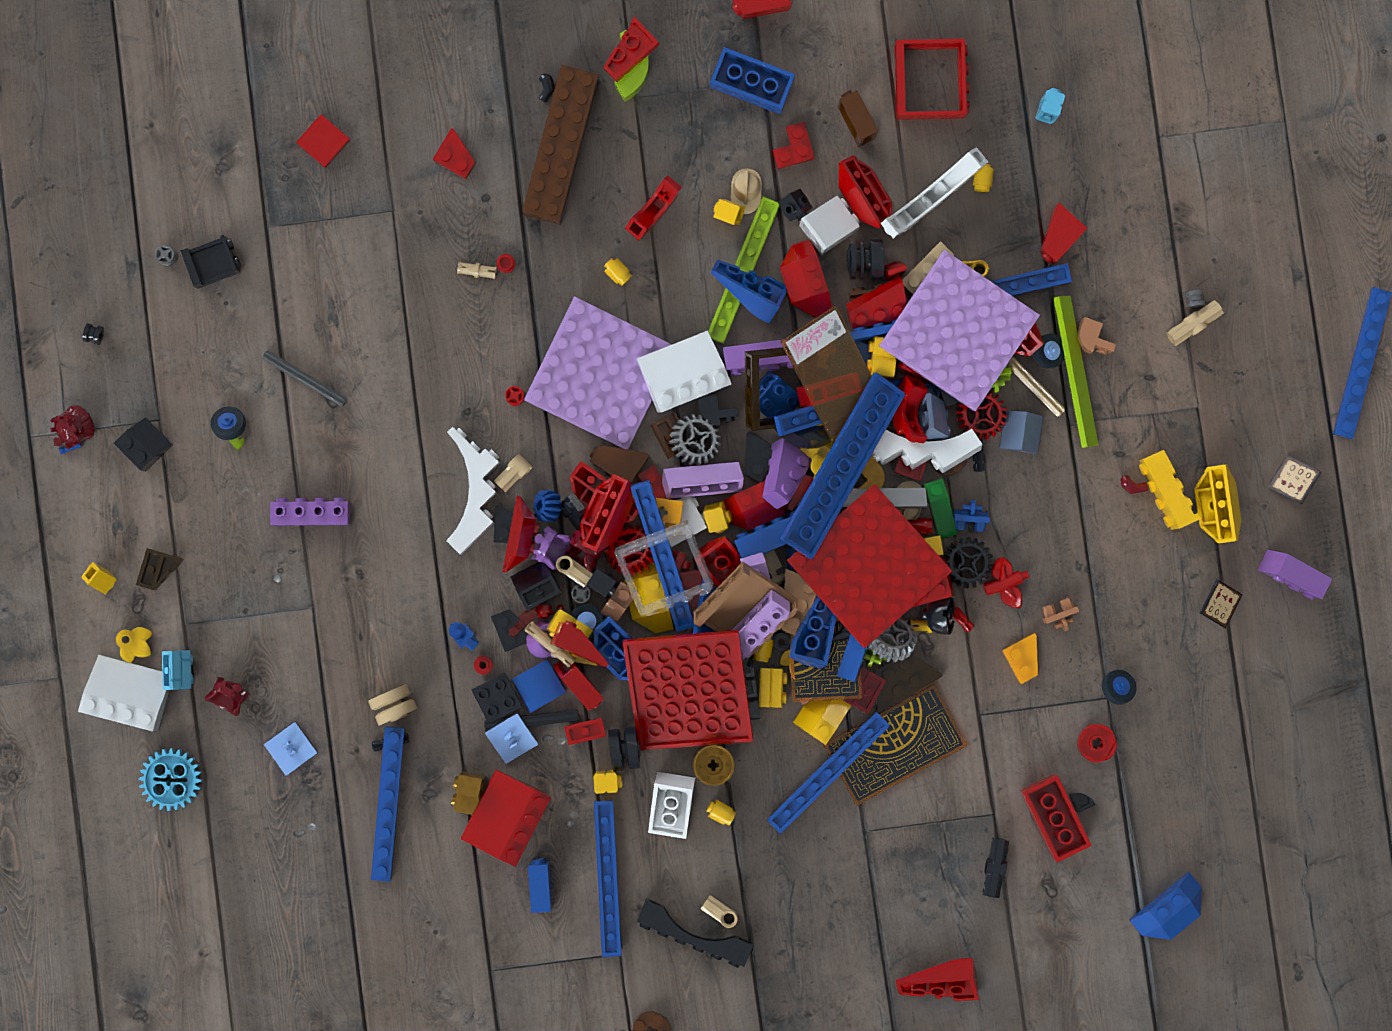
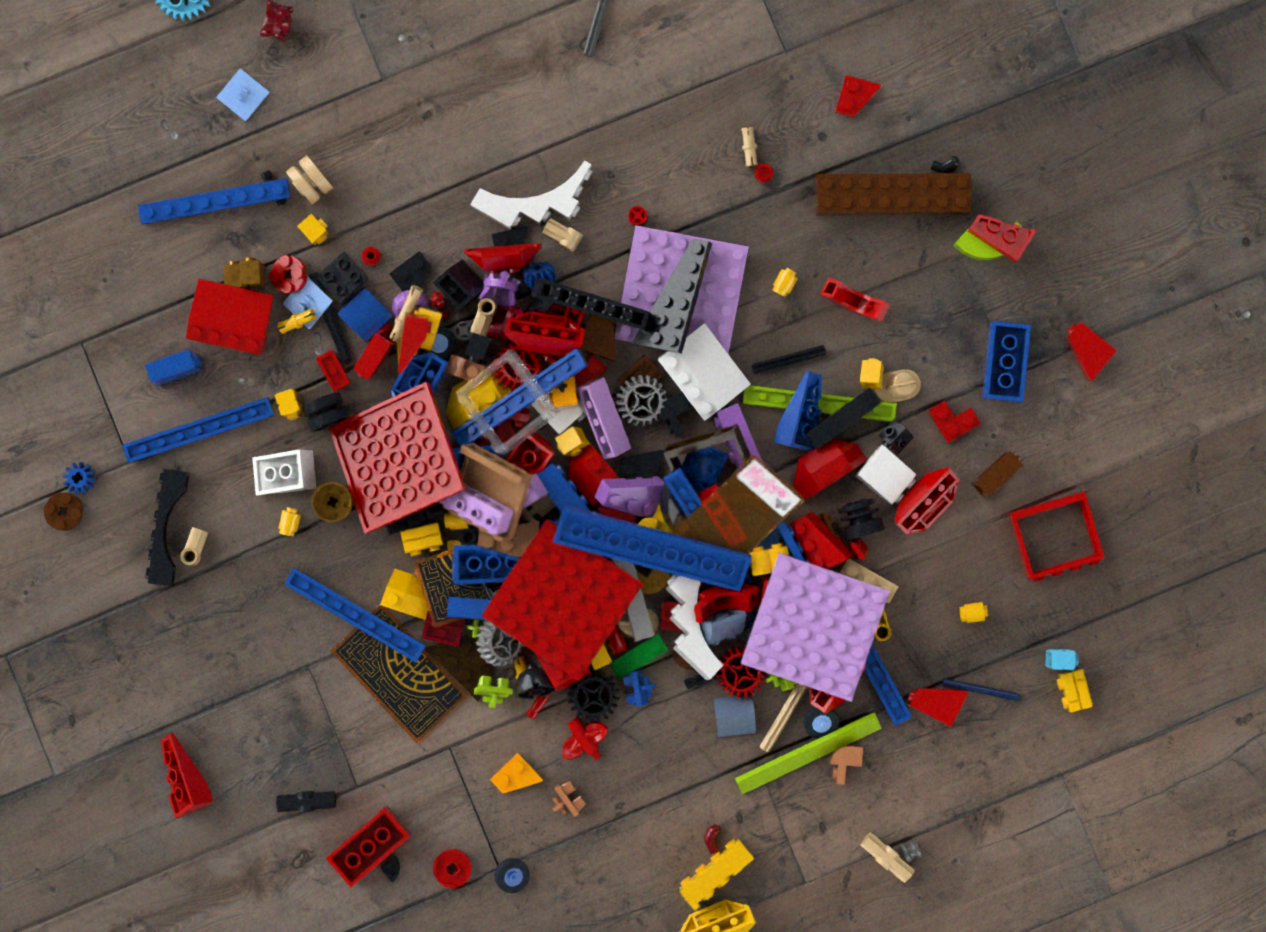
camera: 85 degrees right, 0 degrees up
(310, 513) = (472, 52): medium lavender brick -> none
(442, 713) = (314, 229): none -> yellow brick
(463, 635) = (393, 229): blue hips -> none
(474, 758) = (279, 271): none -> red plate
(525, 619) = (425, 283): clear red plate -> none
(527, 753) = (296, 321): none -> yellow pin
(589, 462) = (590, 303): none -> black brick
(615, 1009) = (75, 471): none -> blue gear
(620, 387) = (674, 308): none -> wing
(692, 288) = (788, 359): none -> black axle
(764, 250) = (843, 418): none -> black slope
(935, 193) = (942, 568): white arch -> none
(938, 649) = (484, 688): none -> lime hips
(1058, 190) = (980, 689): none -> dark blue bar
(1083, 101) = (1074, 690): none -> yellow brick

